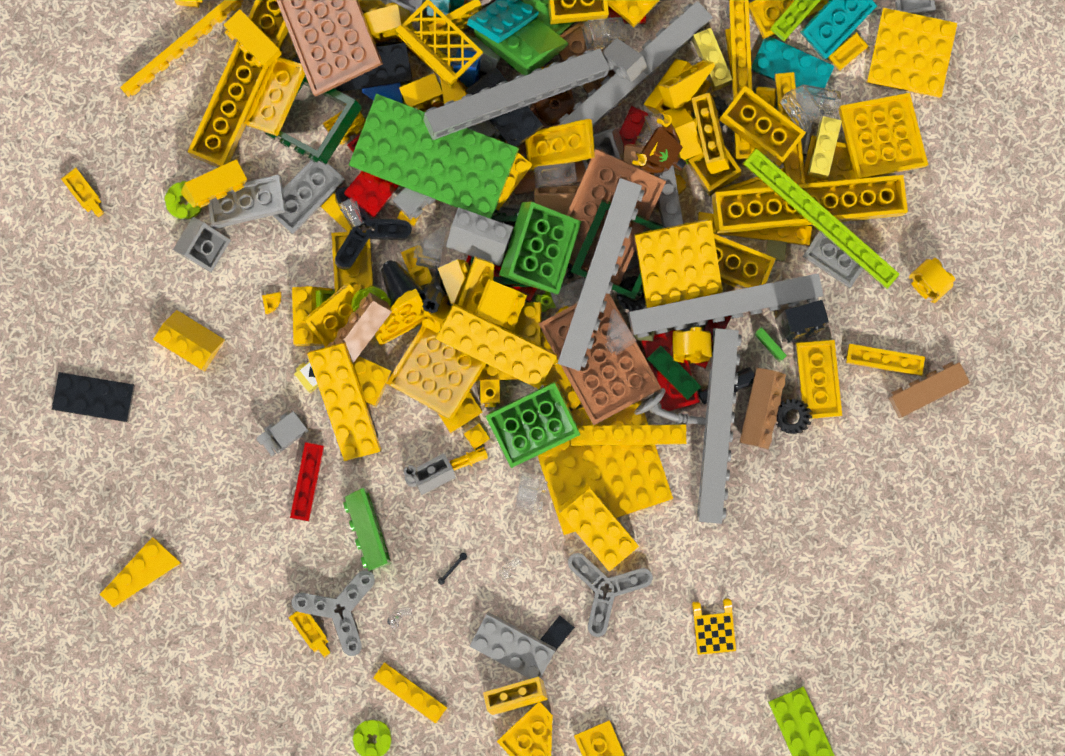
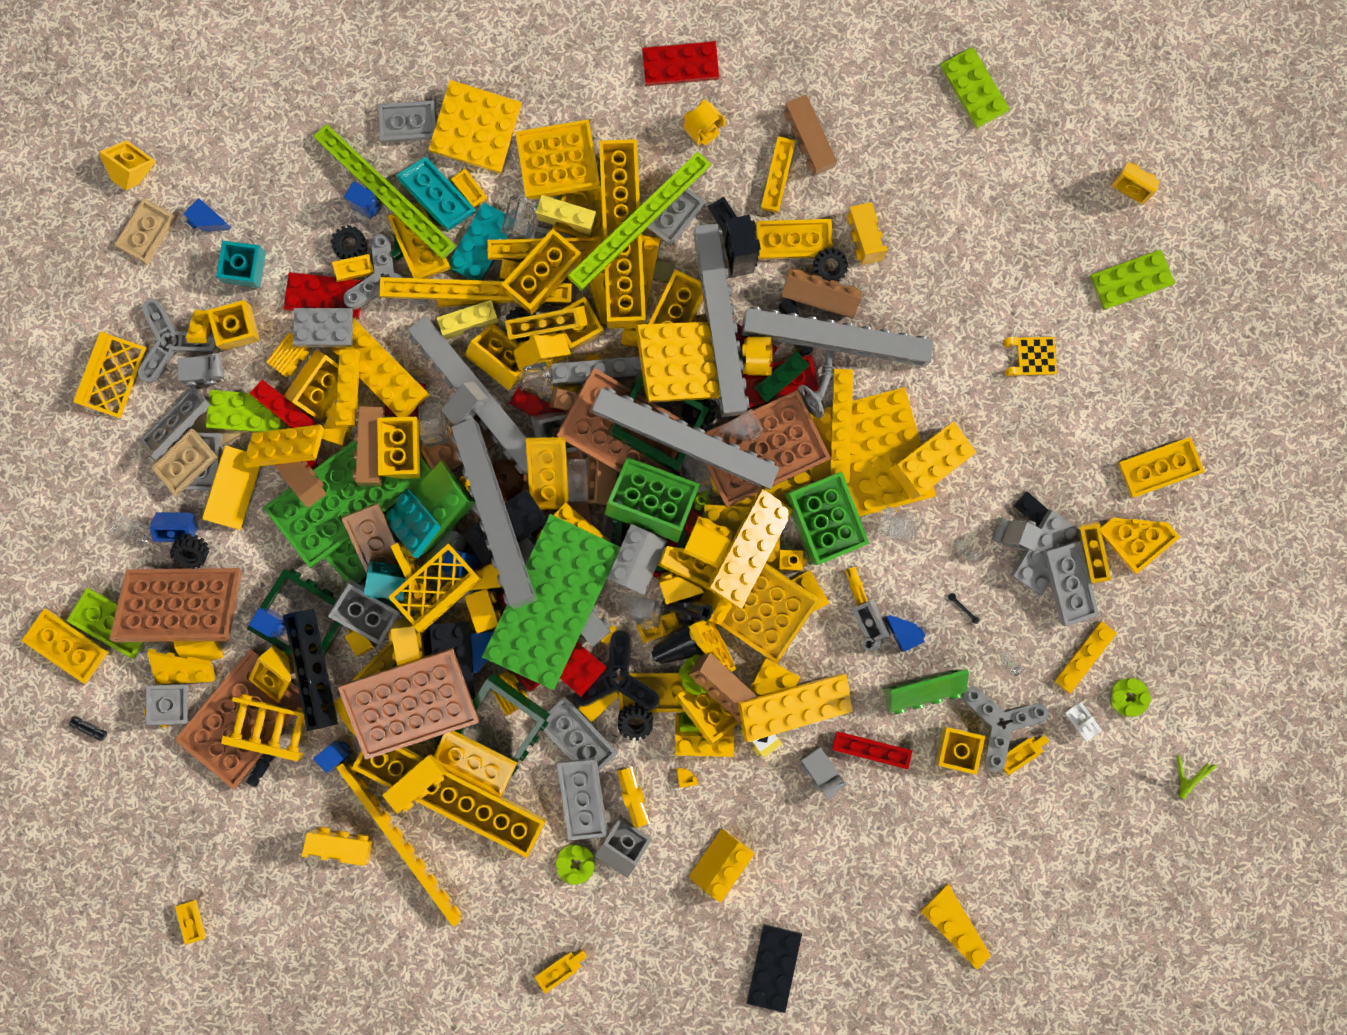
camera: 85 degrees left, 0 degrees up
(214, 184) = (564, 830): yellow slope -> none
(250, 251) = (633, 797): none -> yellow piece
(310, 567) = (959, 750): none -> yellow brick
(314, 247) = (631, 730): none -> black tyre
(345, 690) = (1083, 721): none -> white hips
(351, 211) = (601, 689): clear cone -> none
(424, 509) = (905, 633): none -> blue slope
(476, 436) = (833, 576): yellow plate -> none
(482, 673) = (1071, 583): none -> light grey plate
(529, 615) = (1017, 533): none -> light grey hinge
(619, 585) = (987, 444): light grey piece -> none
(661, 149) = (561, 369): reddish brown torso -> none
(684, 85) = (495, 346): yellow slope -> none
(769, 343) = (757, 283): bright green tile -> none
(801, 107) = (524, 233): clear panel -> none
(829, 451) = (866, 233): none -> yellow wedge
(839, 307) = (721, 212): none -> black plate
(904, 729) = (1136, 183): none -> yellow slope
(994, 558) = (974, 87): none -> lime plate
(996, 254) = (680, 63): none -> red plate

